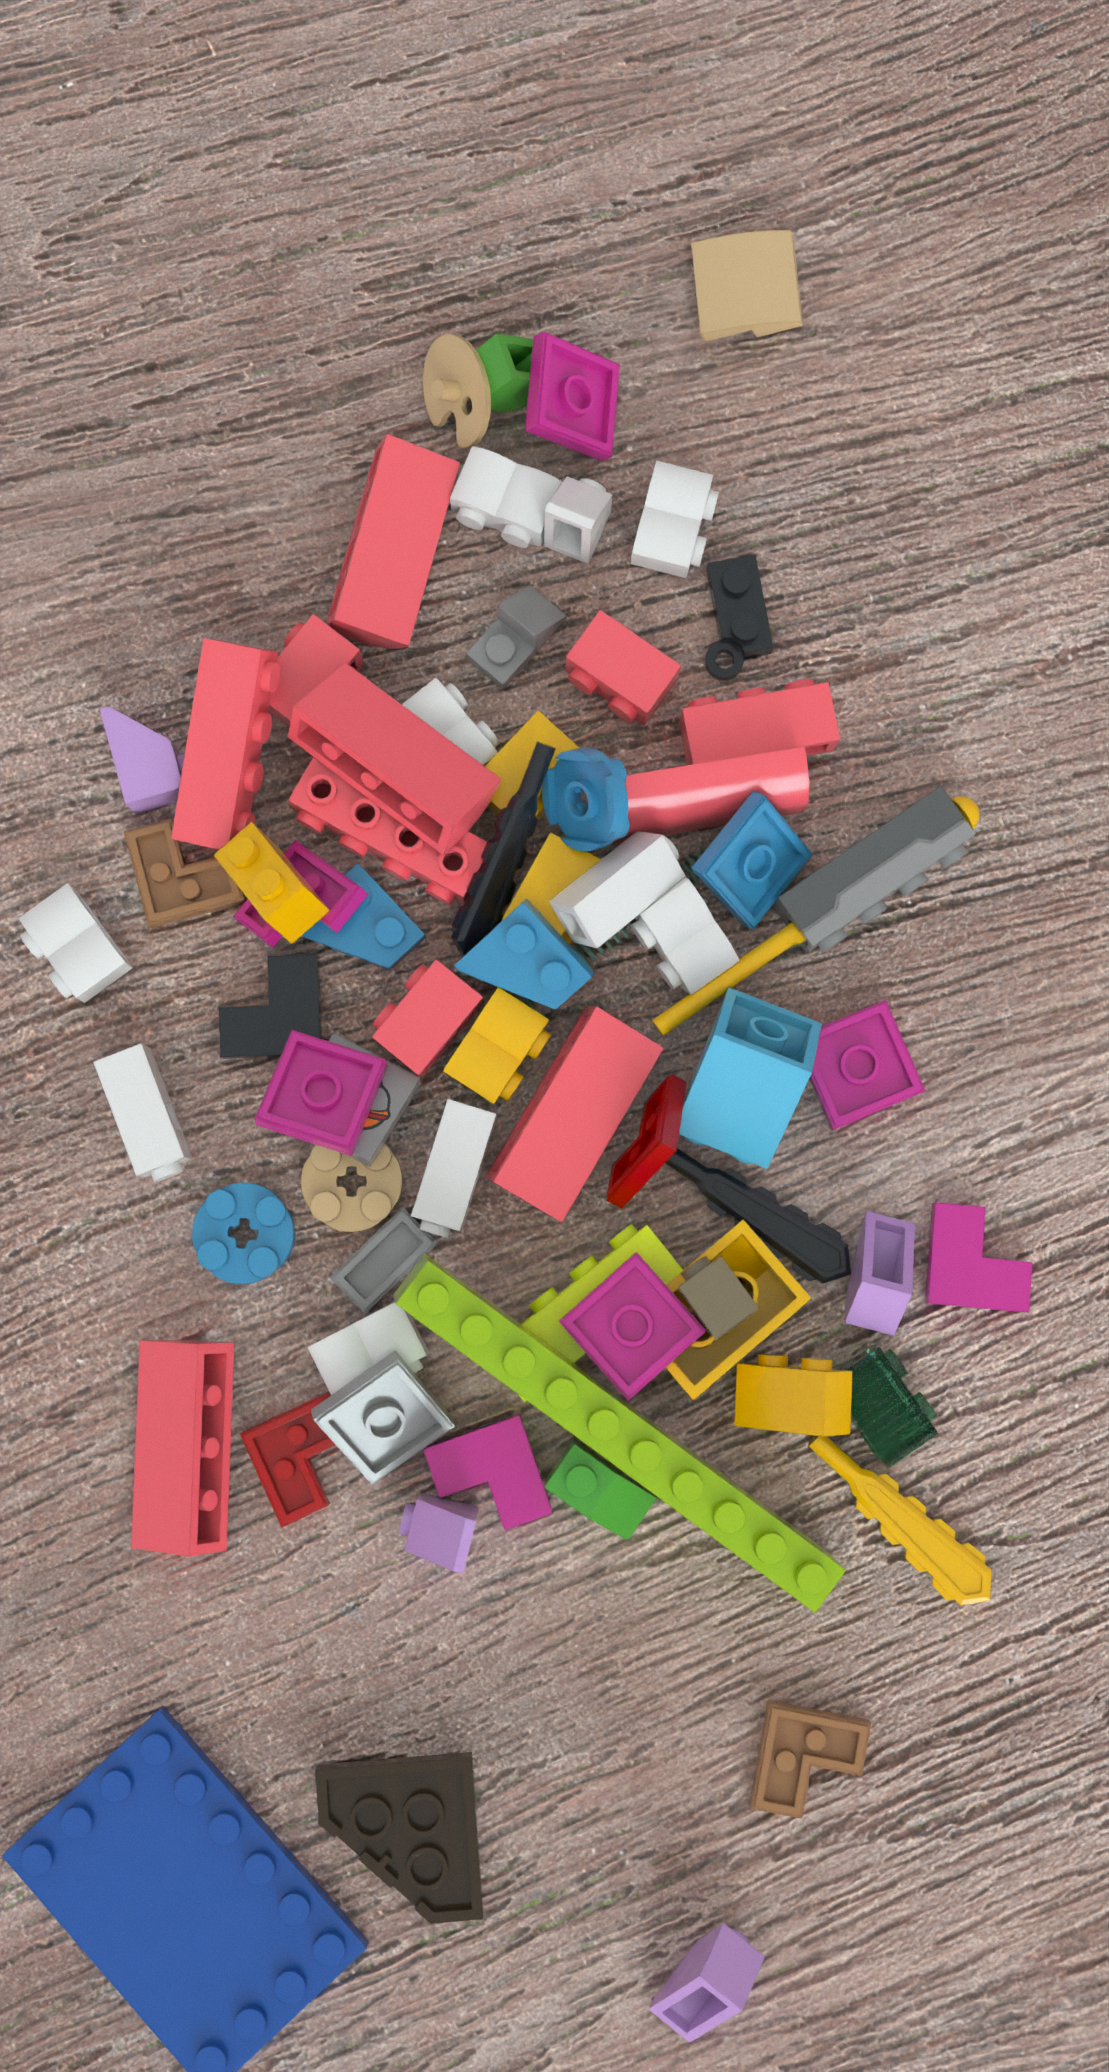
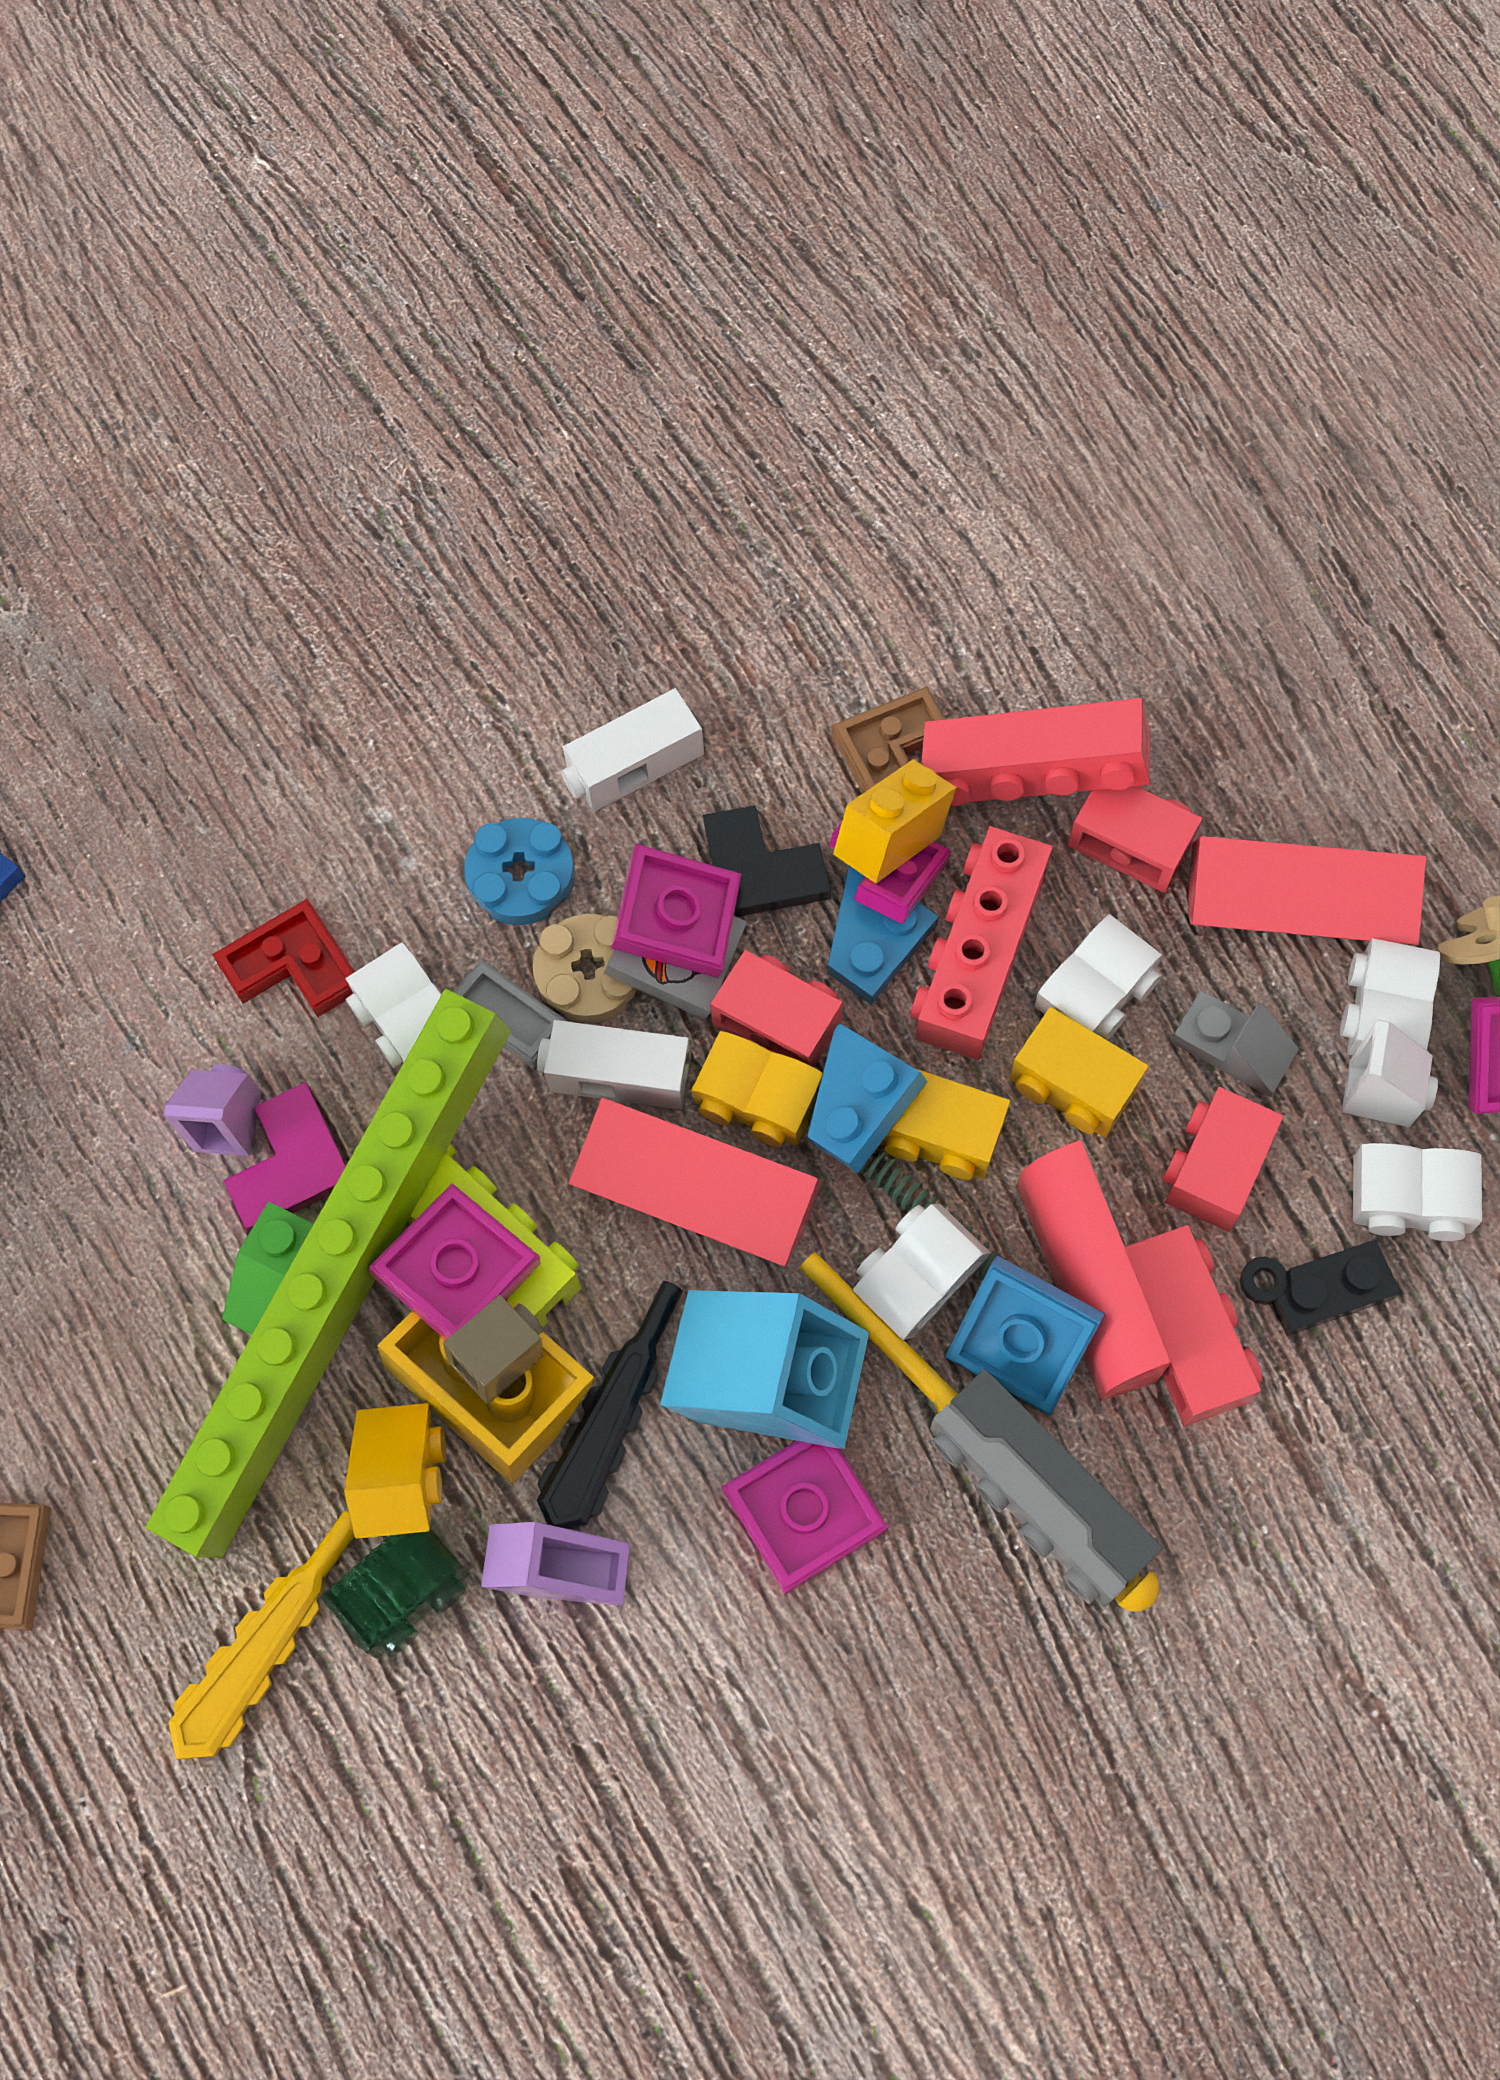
camera: 90 degrees right, 15 degrees down
(74, 943) = (798, 659): white brick -> none
(144, 761) = (1003, 681): lavender slope -> none
(182, 1446) = (289, 845): coral brick -> none
(383, 1417) = (333, 1030): light grey tile -> none
(393, 757) = (1057, 918): coral brick -> none
(502, 857) = (976, 1054): black sword -> none
(603, 781) = (1053, 1123): dark azure plate -> none
(618, 888) = (959, 1180): white brick -> none
(654, 1144) = (671, 1262): red tile -> none
(959, 1272) = (564, 1673): dark pink tile -> none

